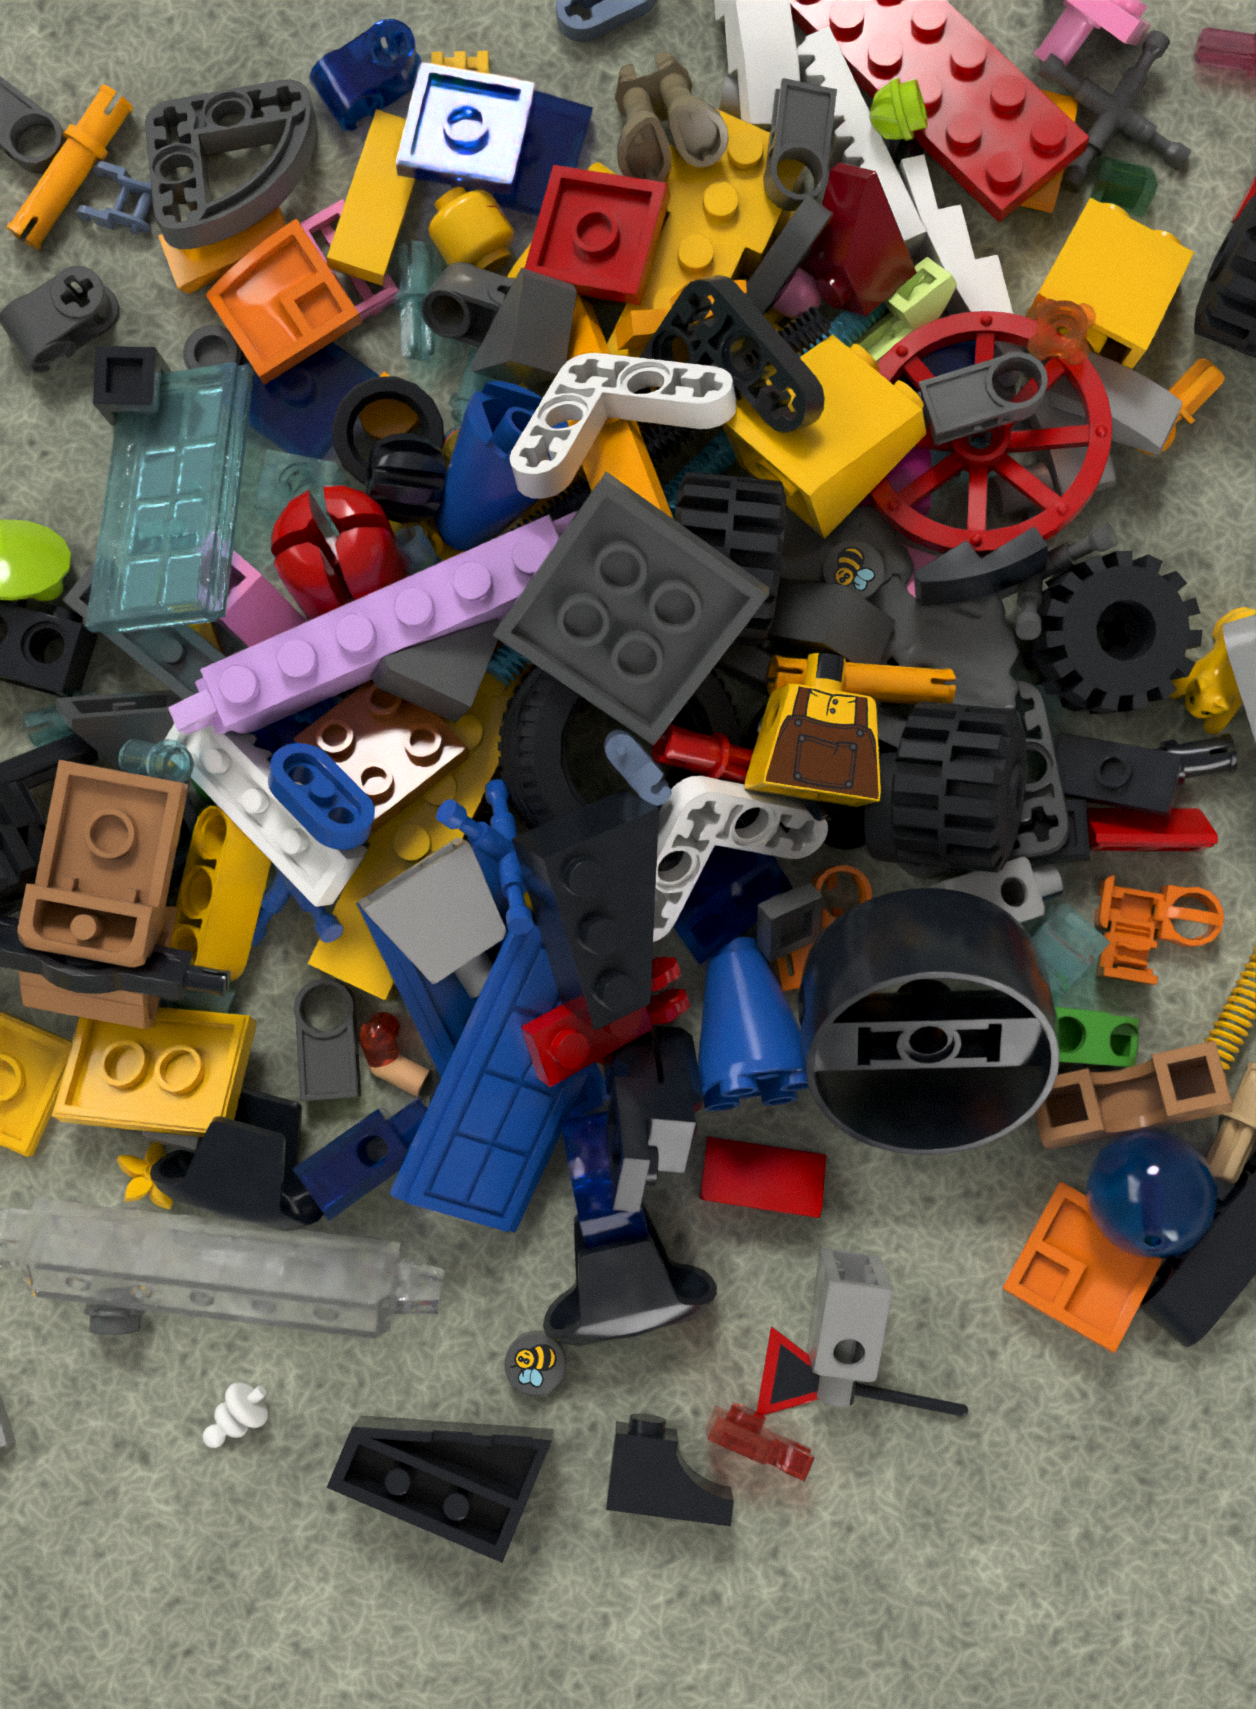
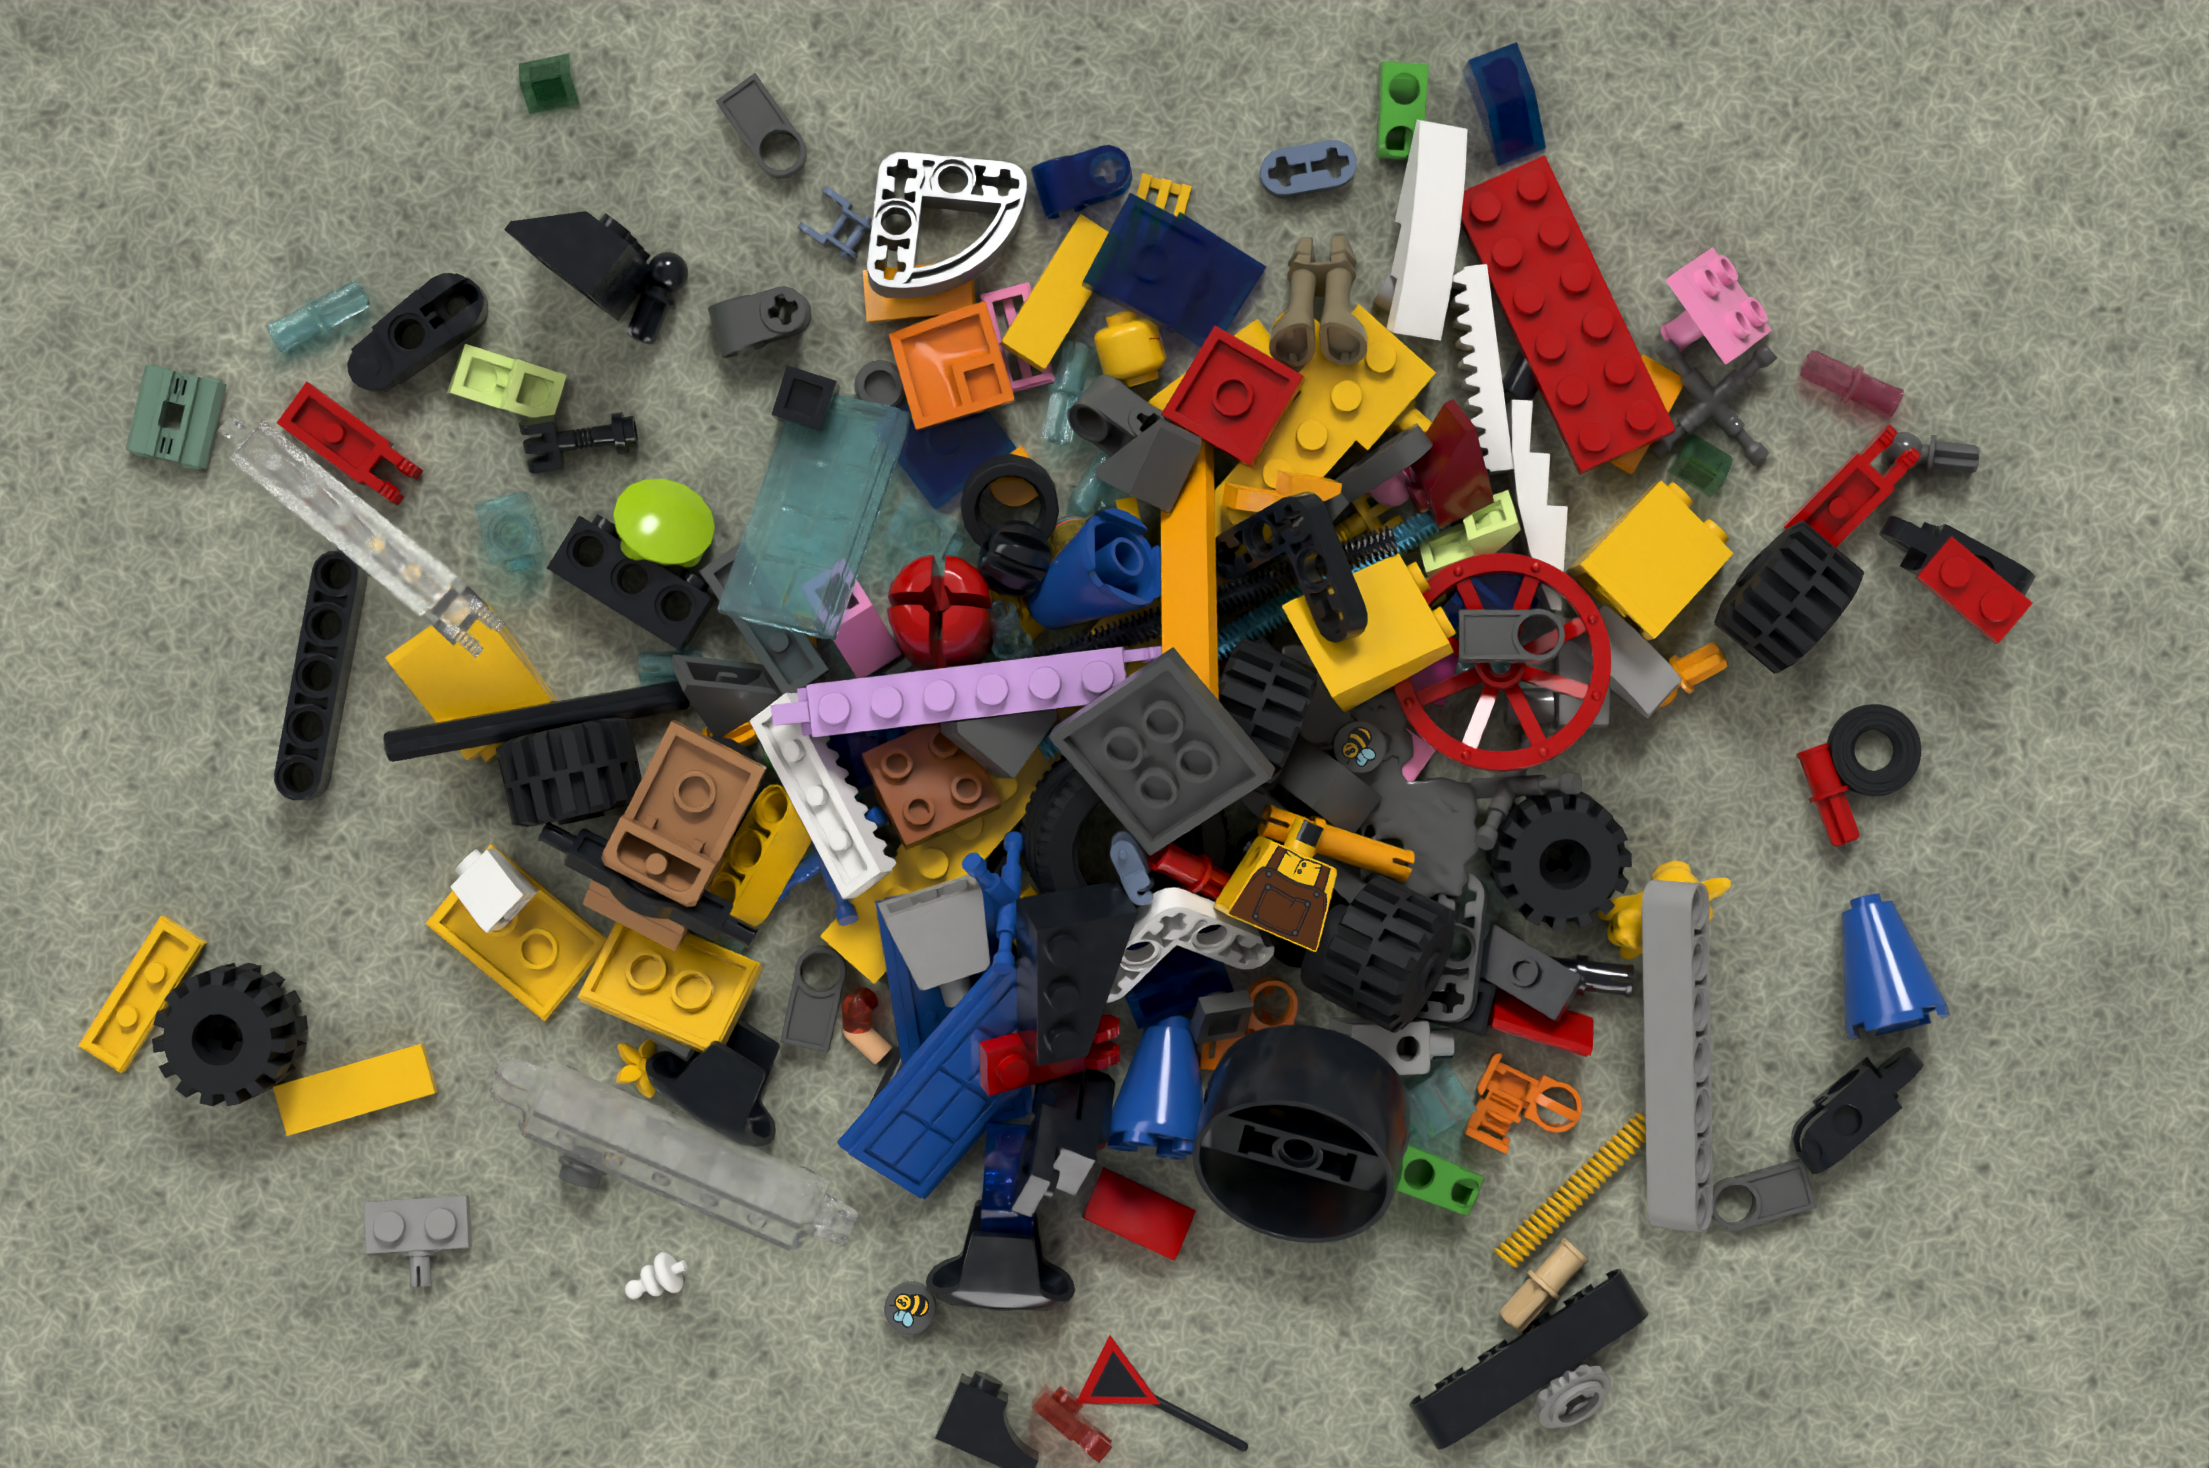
camera: 20 degrees right, 5 degrees up
(70, 166) = (803, 185): light orange pin -> none
(160, 760) = (747, 738): clear light blue pin -> none
(329, 803) = (876, 816): blue plate -> none
(342, 1169) = (799, 1109): clear blue torso -> none
(444, 1476) = (815, 1374): black wedge -> none
(603, 387) = (1188, 560): white beam -> none
(802, 133) = (1434, 357): dark grey piece -> none
(847, 1322) = (1170, 1349): light grey torso -> none
(898, 110) = (1521, 361): lime plate -> none
(964, 576) = (1445, 780): black slope -> none
(1067, 314) = (1583, 589): clear orange plate -> none
(1079, 1274) = (1377, 1362): orange plate -> none
(1151, 1194) = (1445, 1320): clear blue piece -> none
(1154, 1094) = (1454, 1240): medium nougat arch -> none

